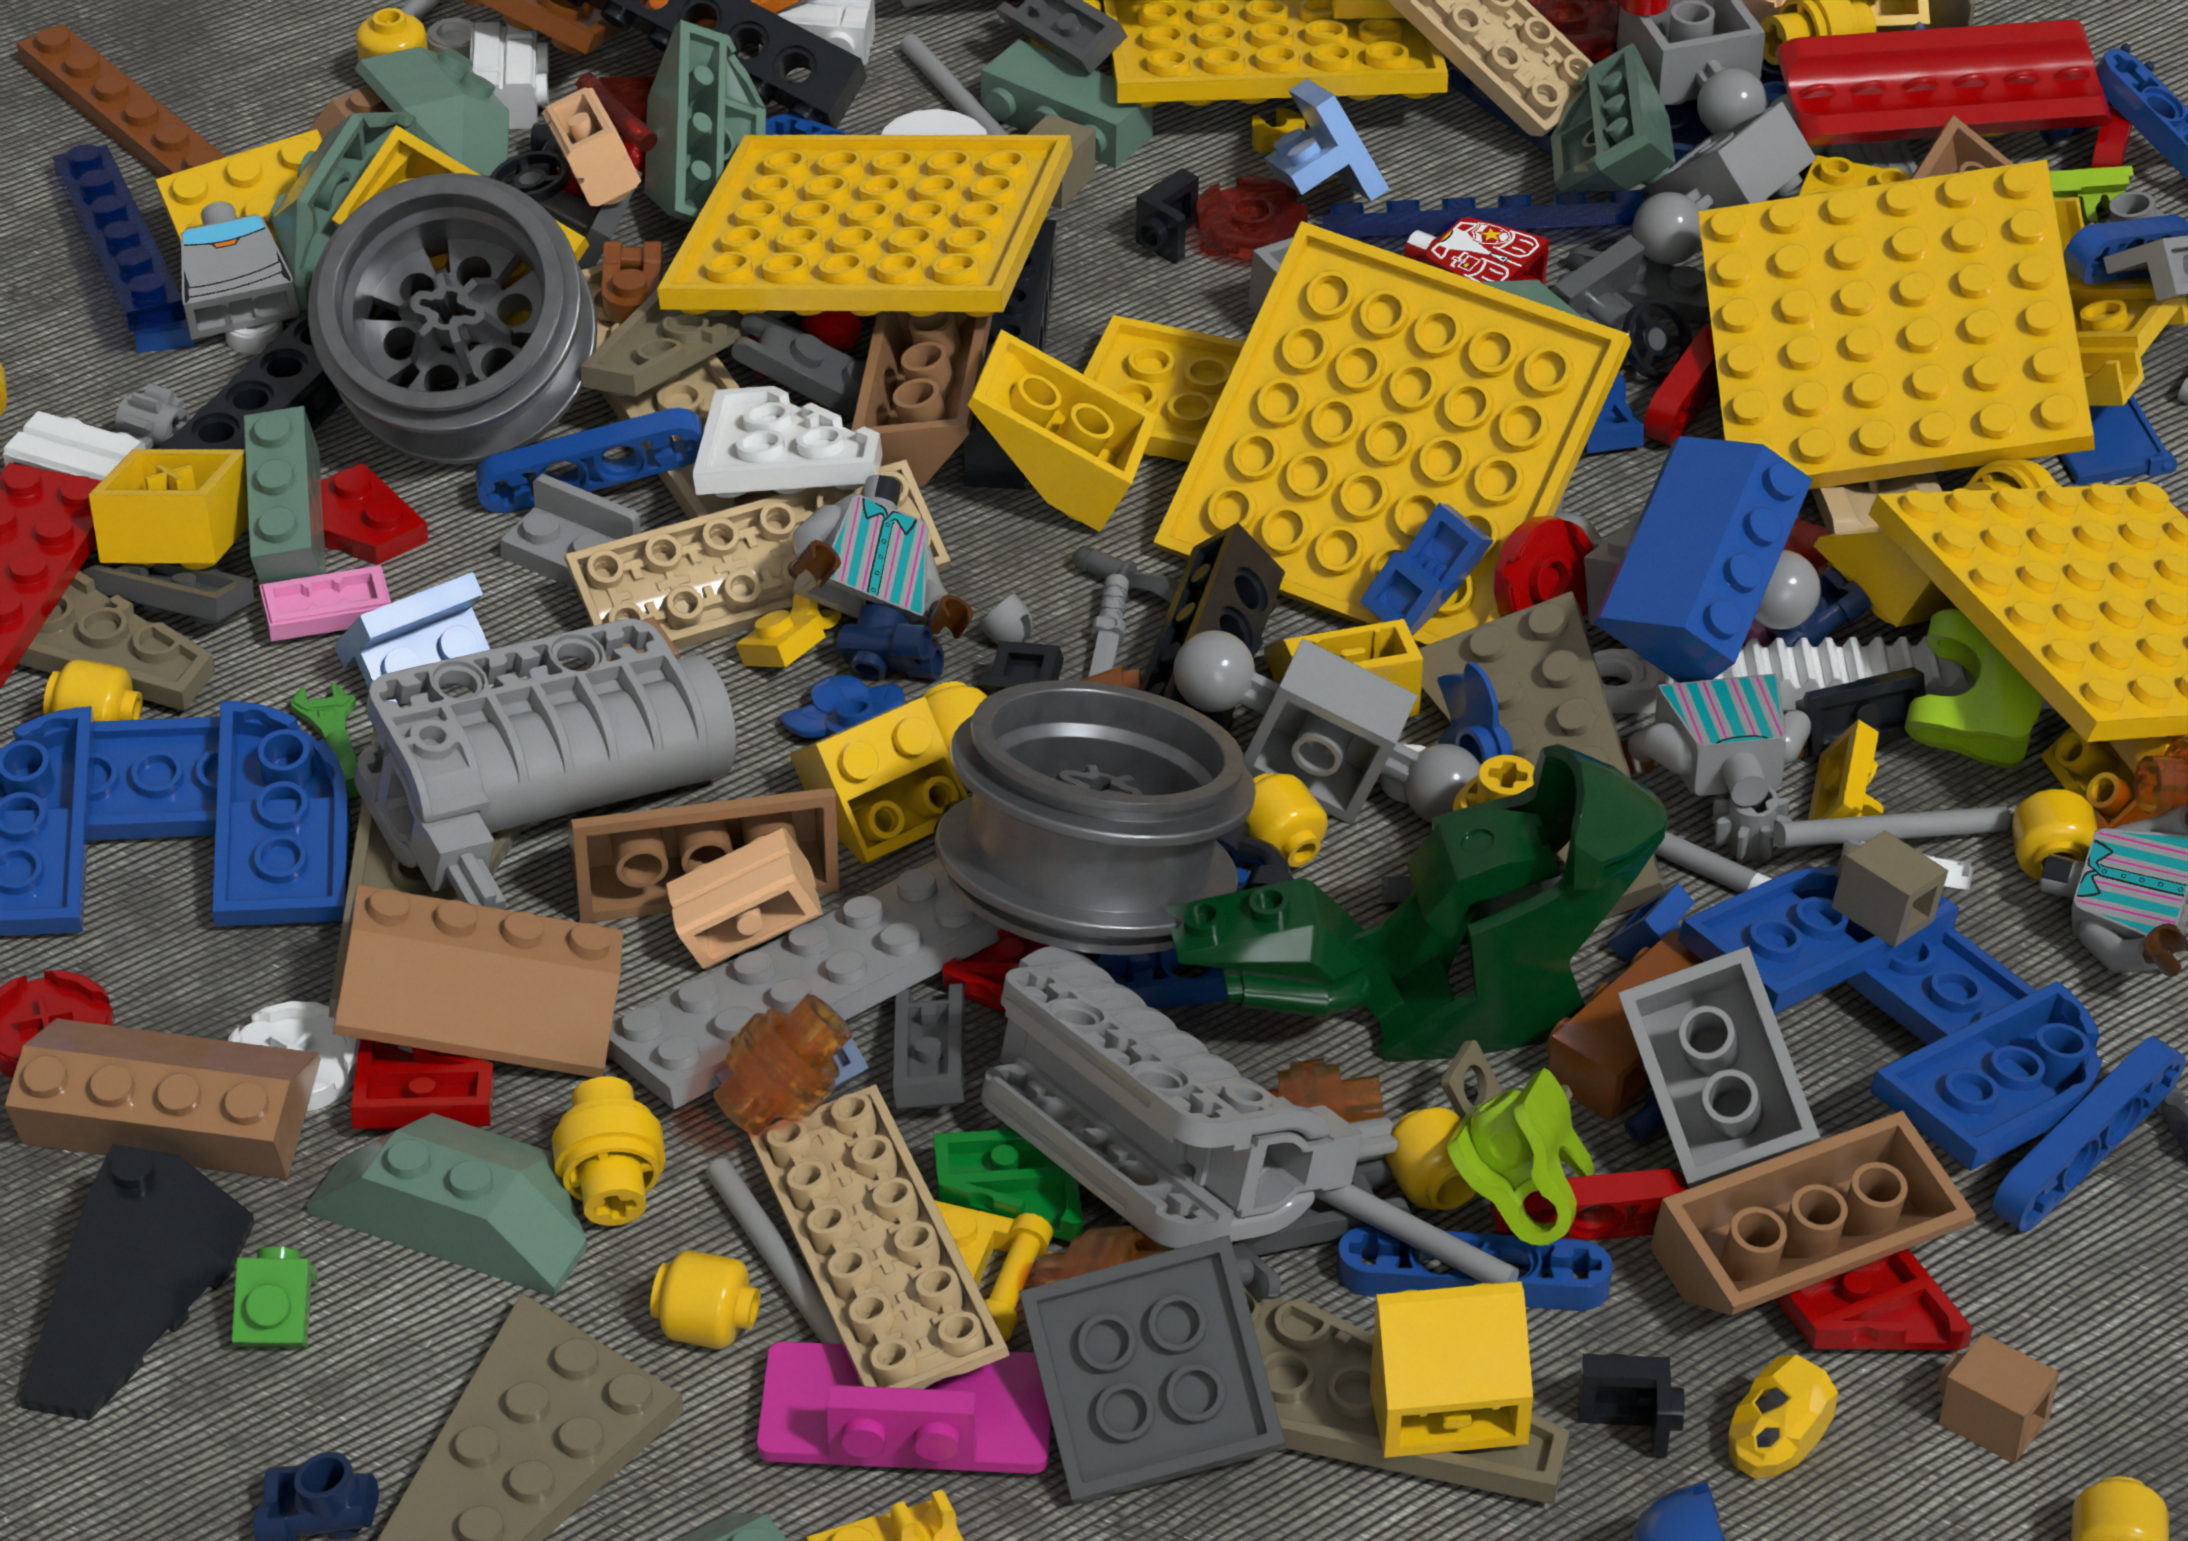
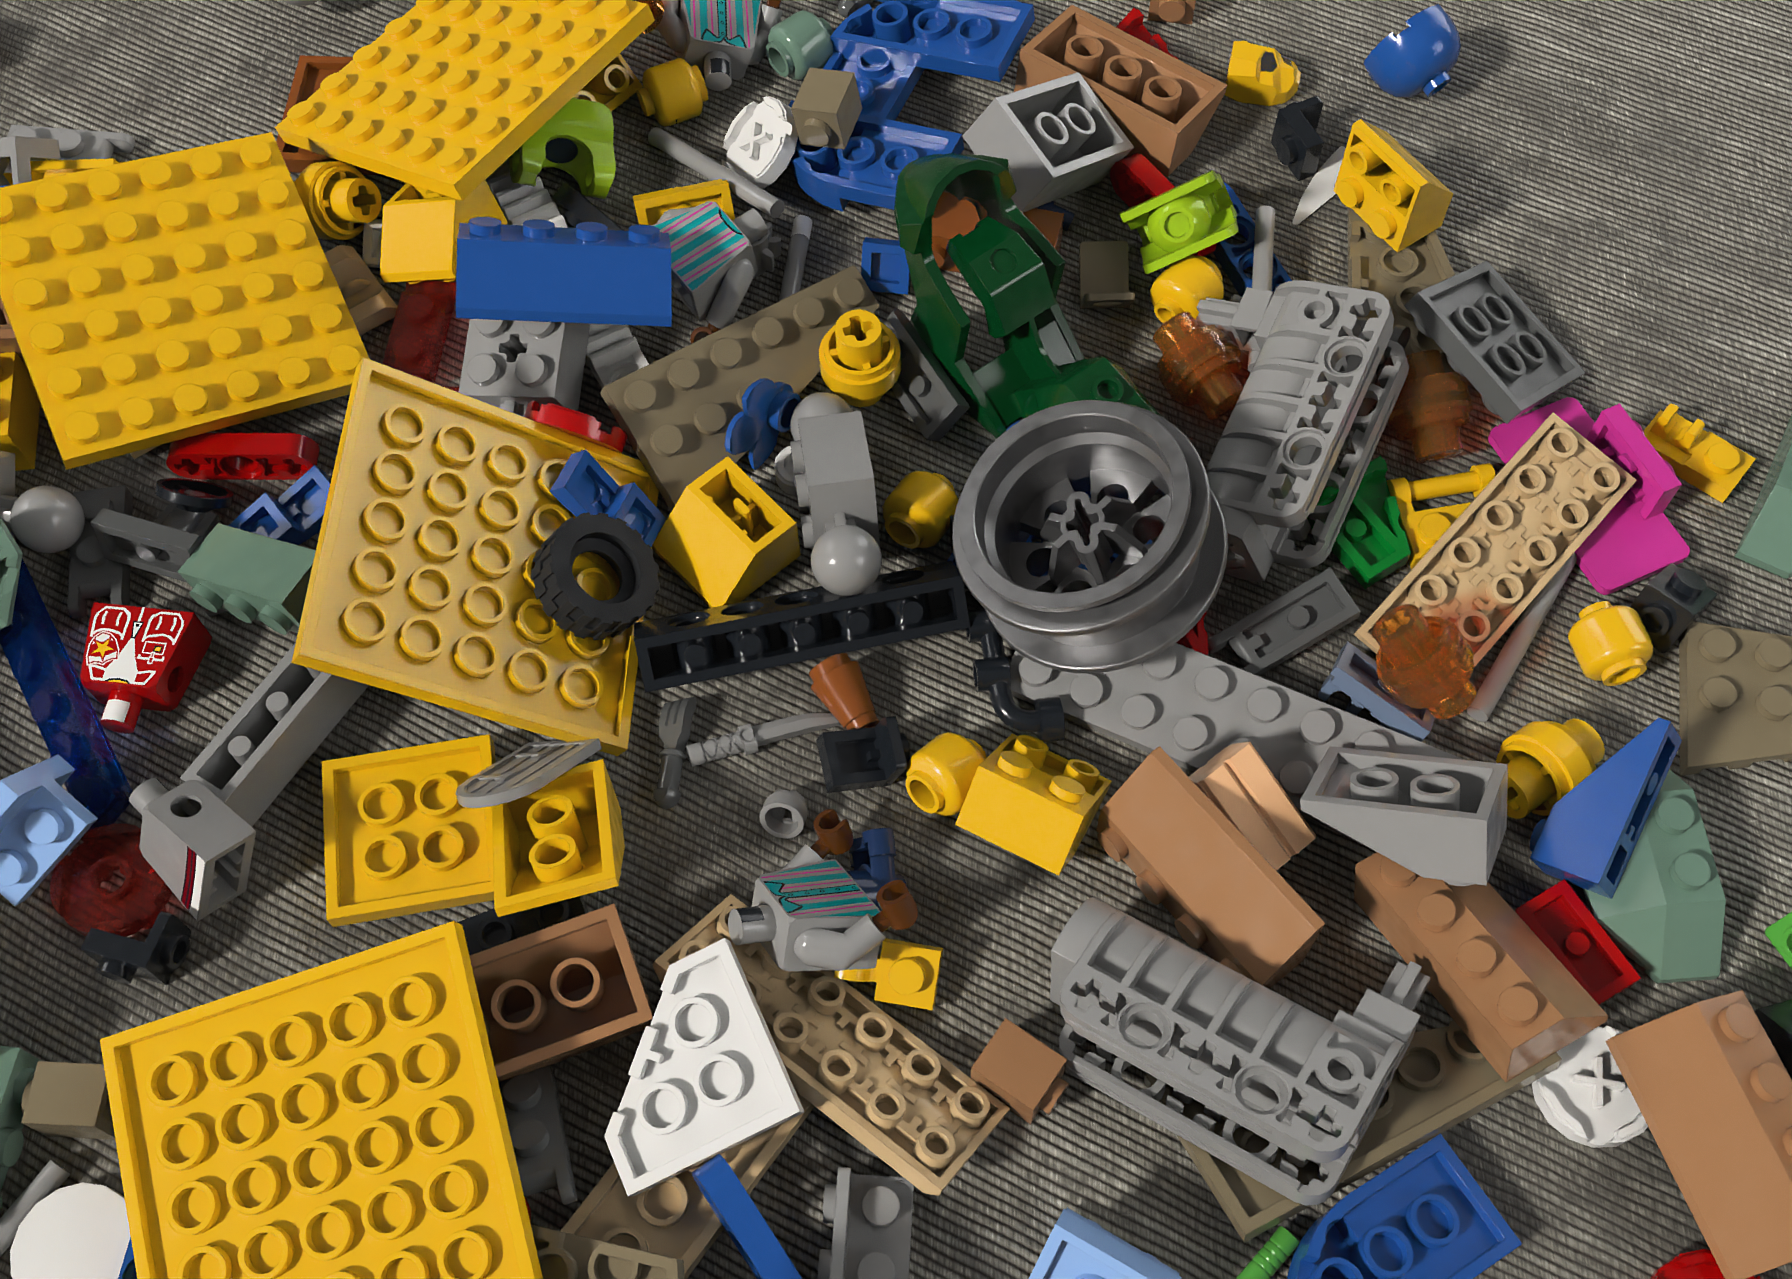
camera: 115 degrees left, 20 degrees up
(506, 1117) = (1602, 817): none -> blue slope
(633, 959) = (1415, 809): none -> light grey slope
(711, 1388) = (1671, 604): none -> black bracket
(839, 704) = (955, 889): blue plate -> none
(1151, 428) = (524, 772): none -> light grey window
(1223, 230) = (194, 843): none -> light grey torso
(1311, 489) = (569, 603): none -> black tyre
(1583, 1457) = (1320, 187): none -> white sticker
(2080, 960) = (799, 44): none -> sand green head

